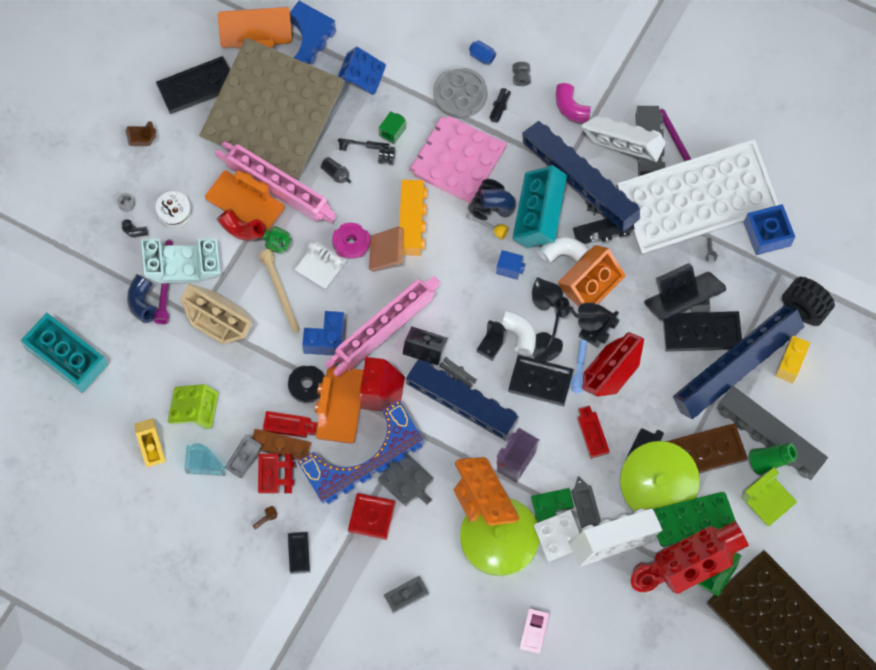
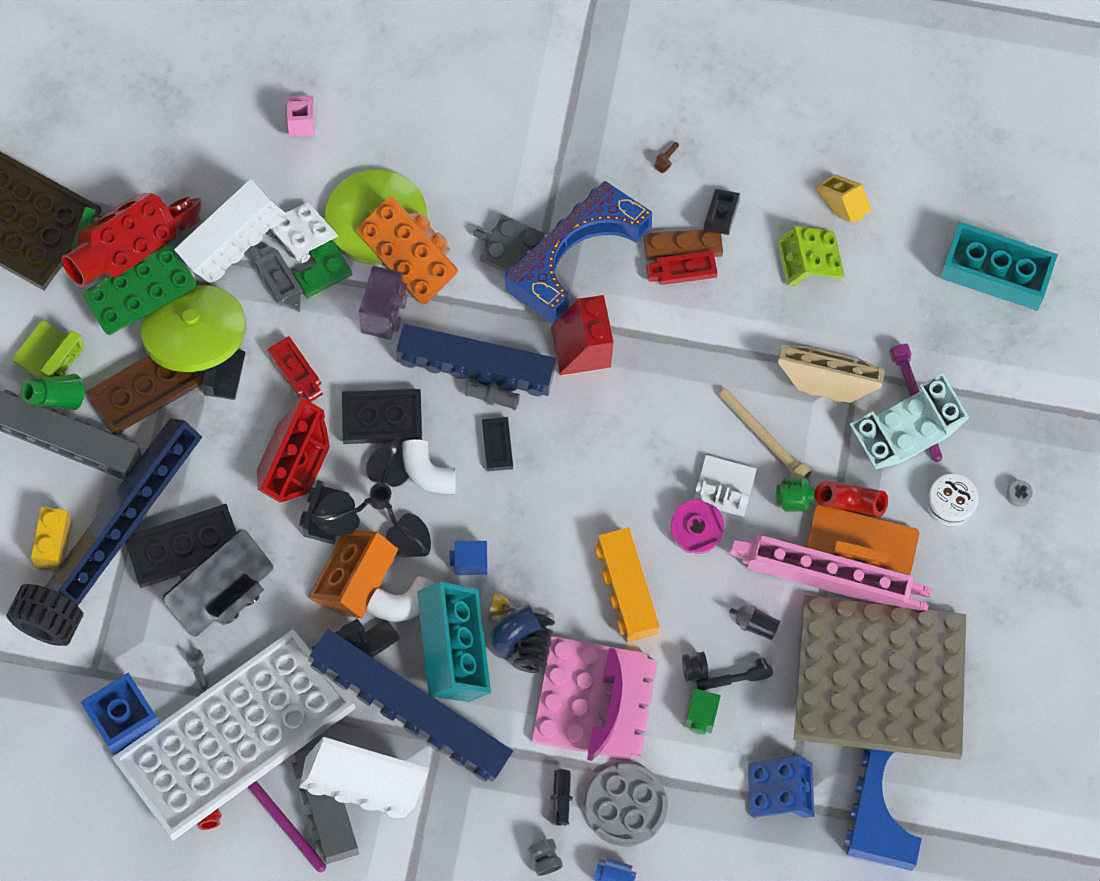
camera: 160 degrees right, 0 degrees up
(132, 231) = (992, 457): black arm -> none
(137, 299) = (937, 358): dark blue cylinder -> none
(141, 134) = (1046, 590): reddish brown bracket -> none
(193, 85) = (1007, 692): black plate -> none
(202, 461) = (768, 193): clear light blue slope -> none
(262, 25) = (958, 798): orange bracket -> none
(269, 473) = (683, 204): red plate -> none
(298, 552) = (611, 127): black plate -> none
(303, 373) = (677, 341): black tile -> none
(325, 340) = (674, 385): blue brick -> none
(339, 406) = (631, 312): orange bracket -> none
(371, 516) = (539, 192): red plate -> none
(383, 325) = (608, 420): bright pink hinge -> none
(386, 249) = (644, 524): nougat tile -> none
(406, 594) = (466, 117): dark grey plate -> none
(424, 345) = (548, 418): black bracket -> none
(463, 123) = (601, 736): none -> magenta slope
(465, 340) = (497, 444): none -> black tile
(493, 340) = (461, 446): black bracket -> none
(568, 106) = (460, 824): dark pink cylinder -> none
(577, 379) = (335, 436): light blue piece -> none

